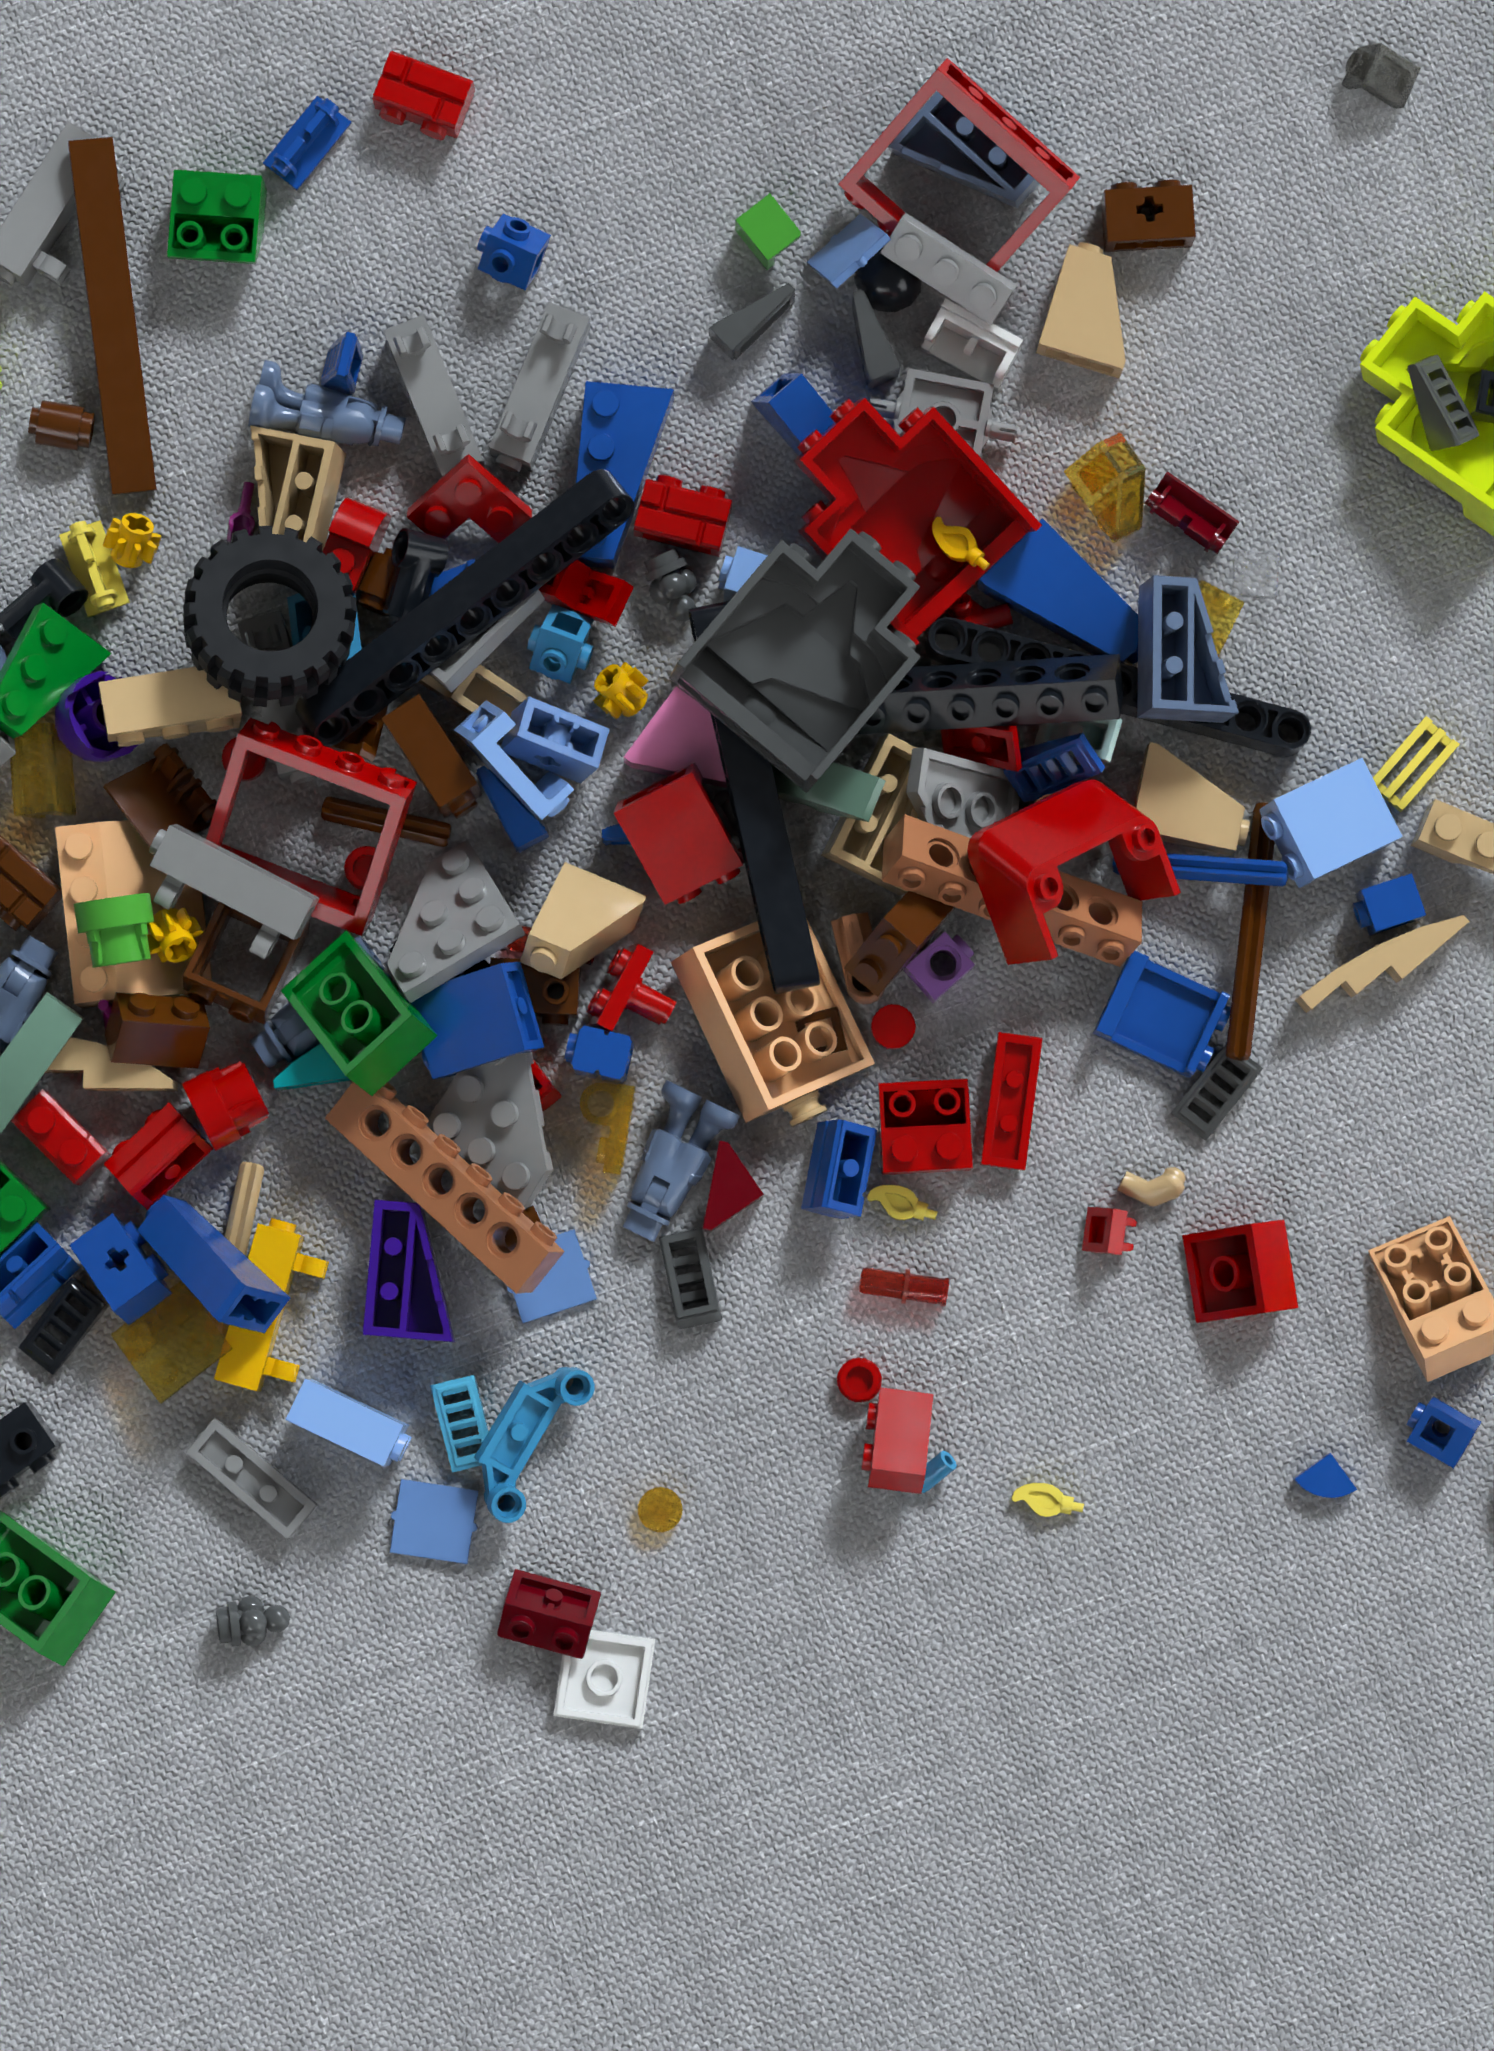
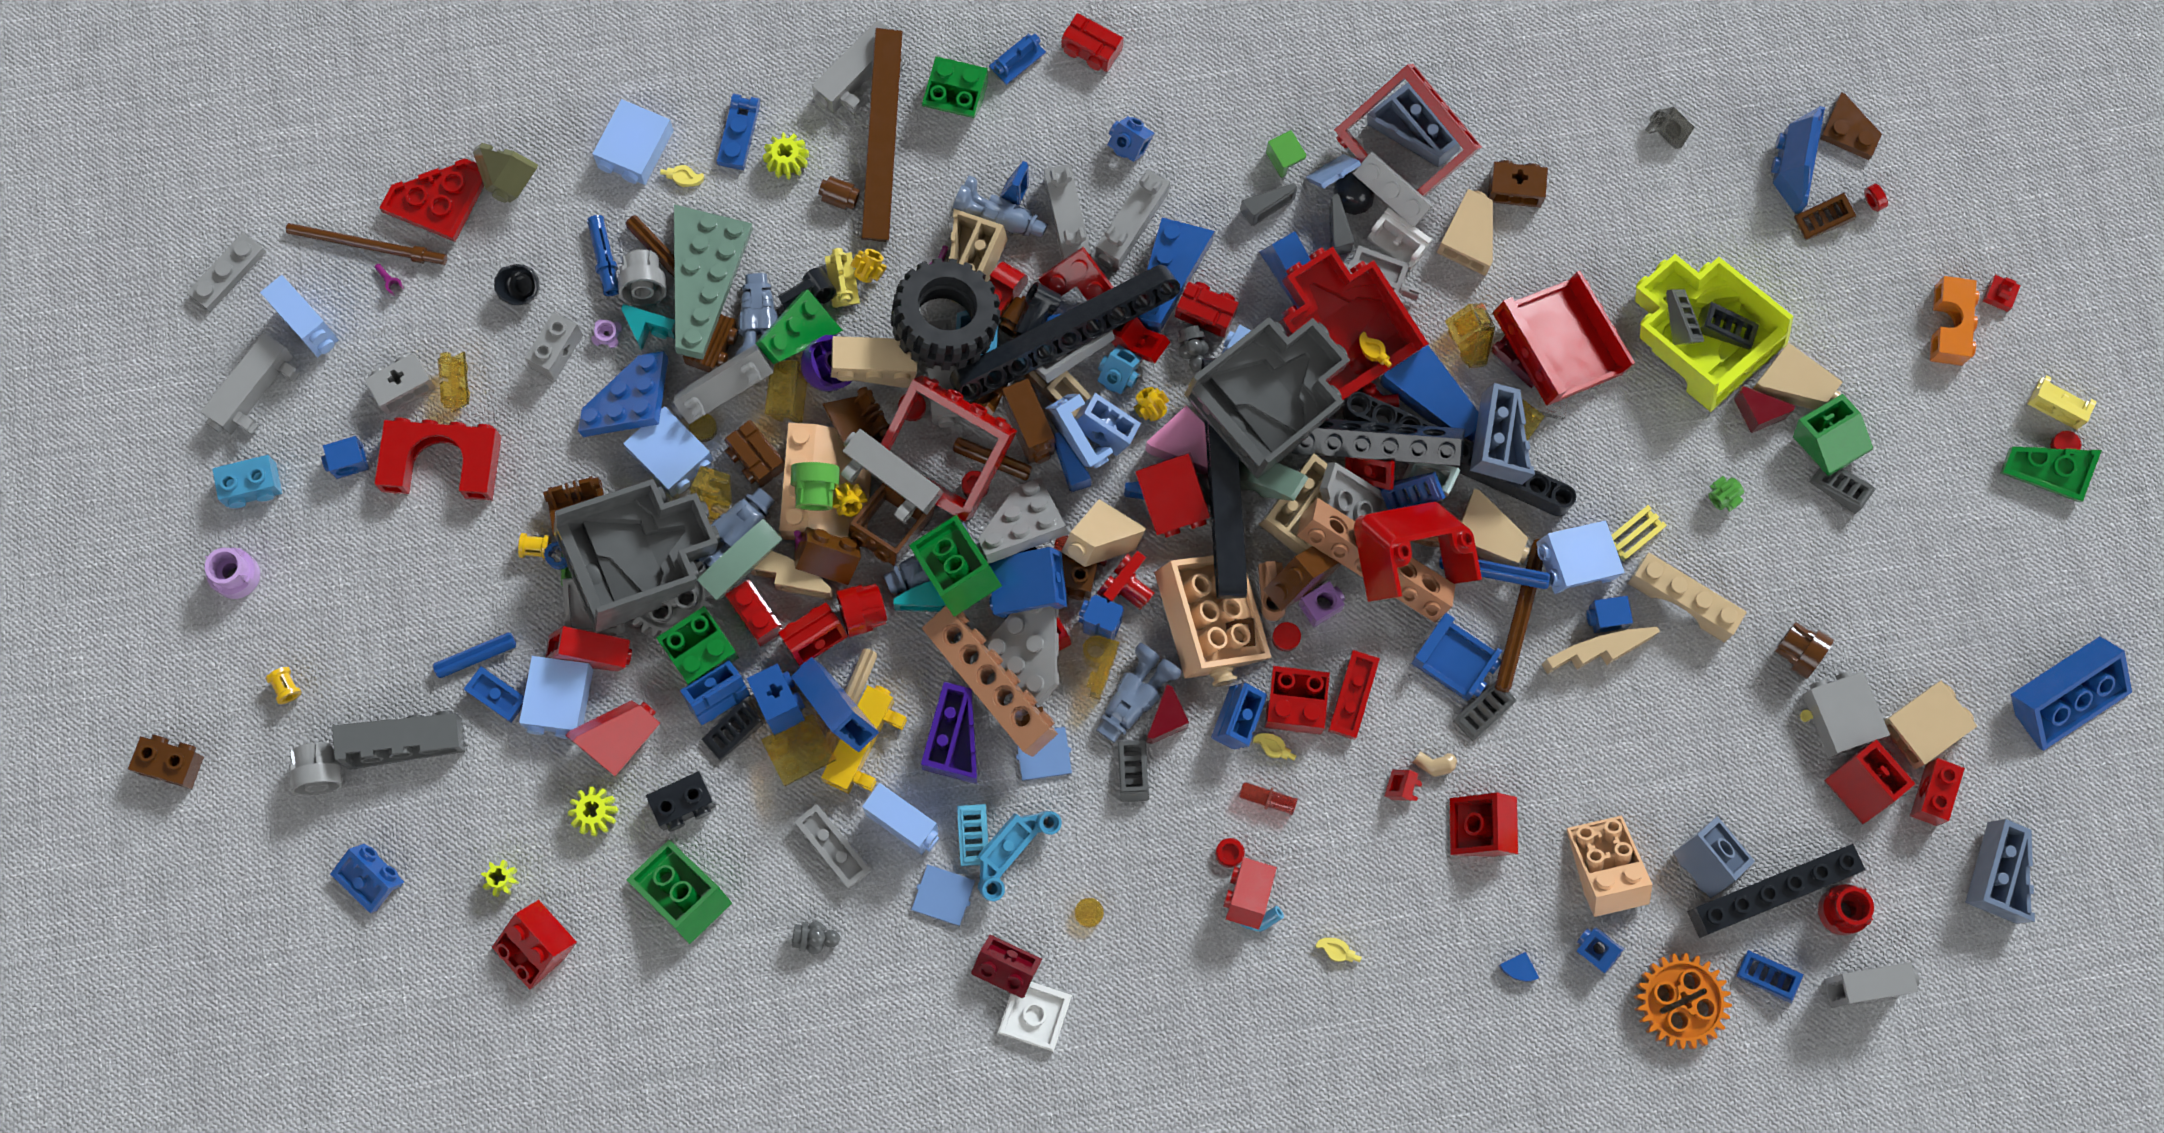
camera: 10 degrees right, 10 degrees down
(1256, 469) = (1563, 339): none -> panel

